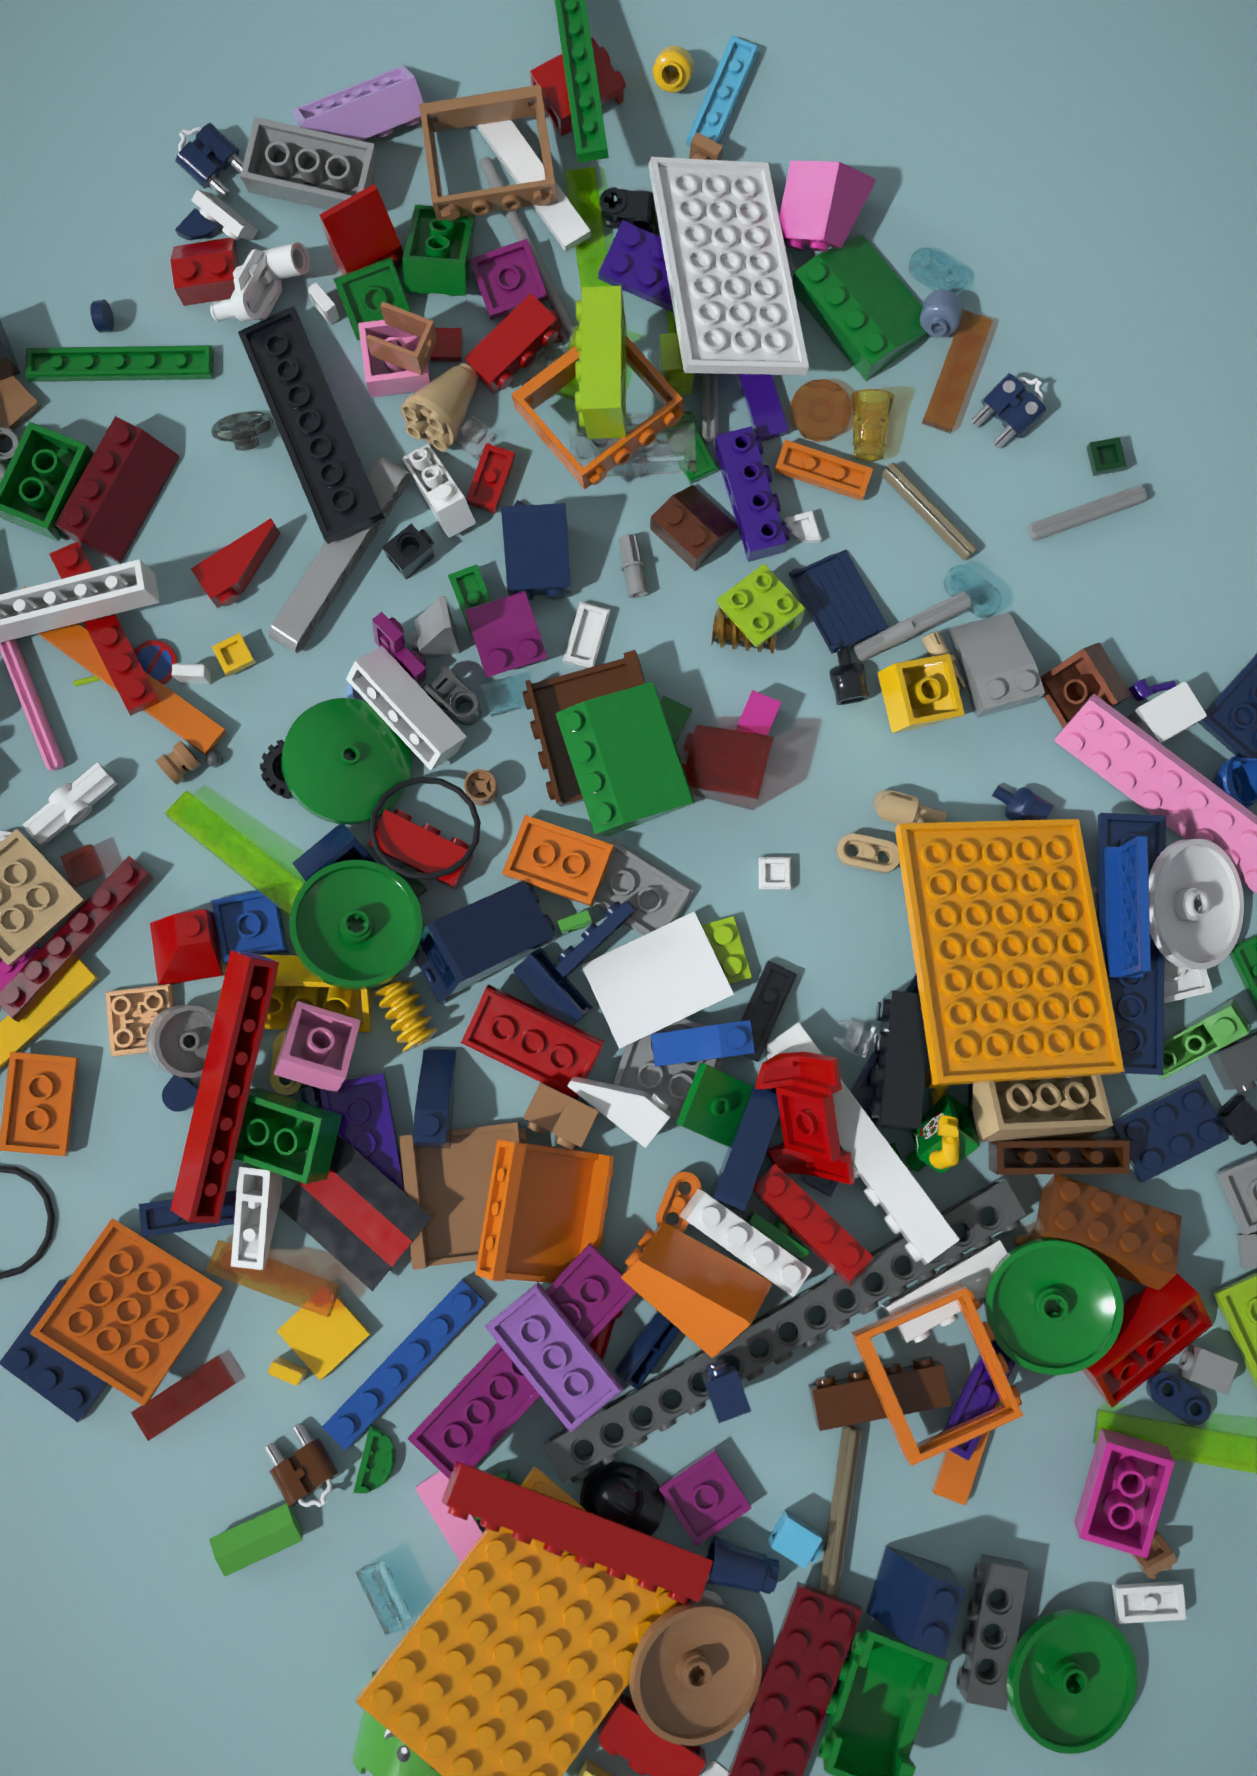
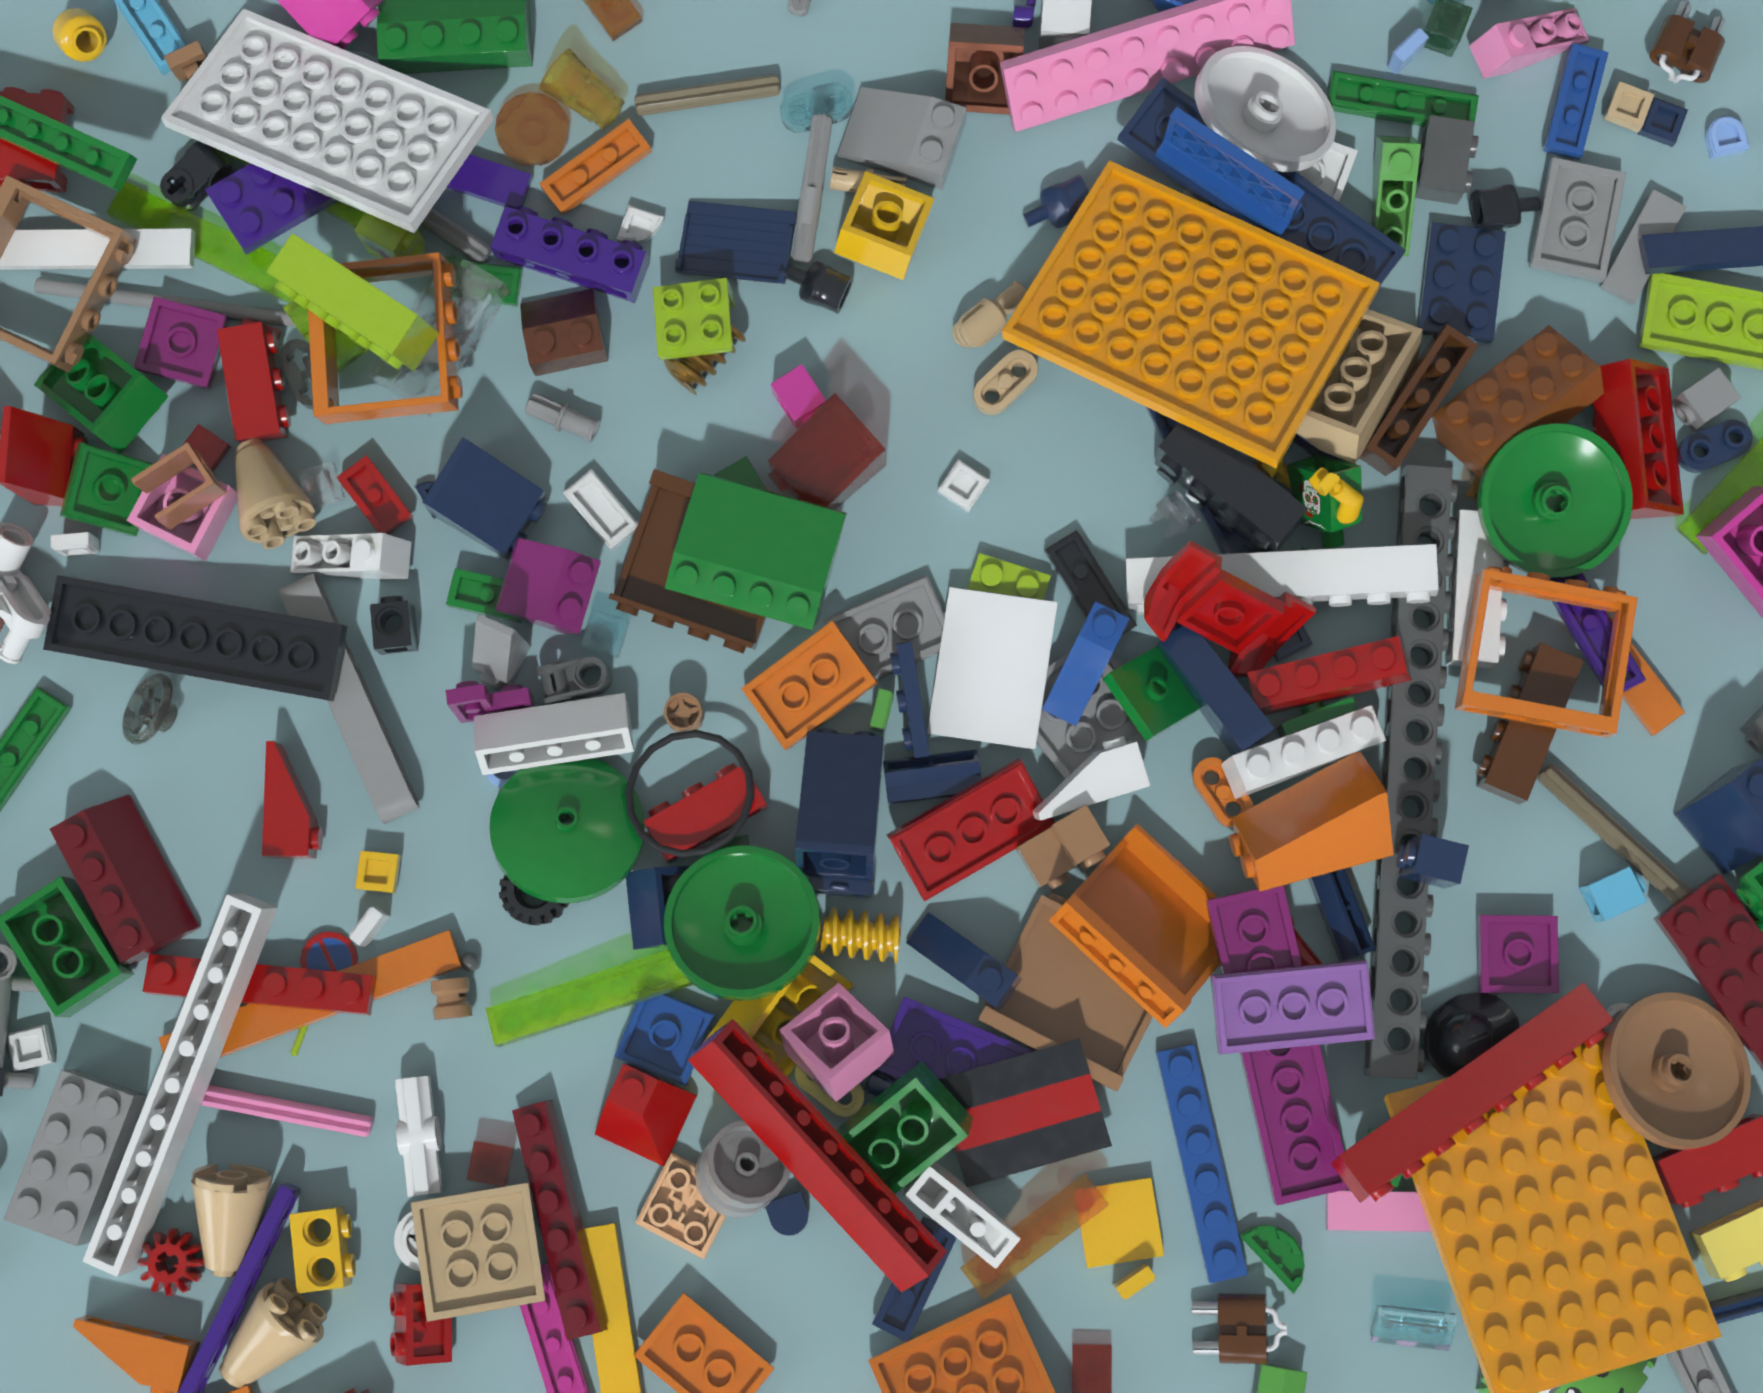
camera: 50 degrees left, 0 degrees up
(741, 1567) = (1606, 962): dark blue plant -> none

